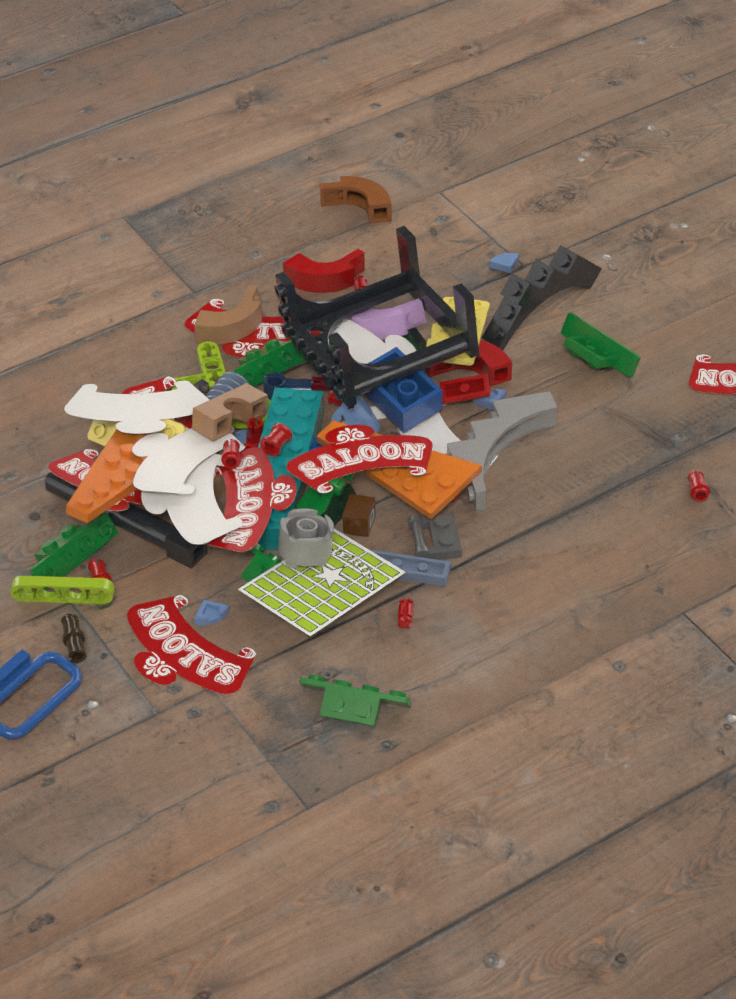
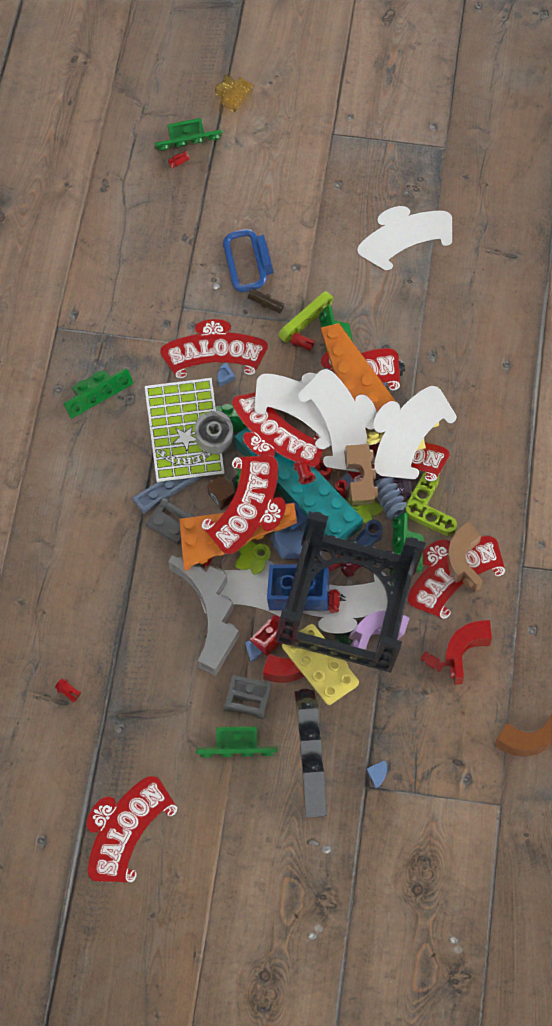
camera: 130 degrees right, 20 degrees up
(231, 457) = (317, 445): red pin -> none
(405, 613) = (130, 461): red piece -> none
(538, 375) = (248, 690): none -> dark grey plate

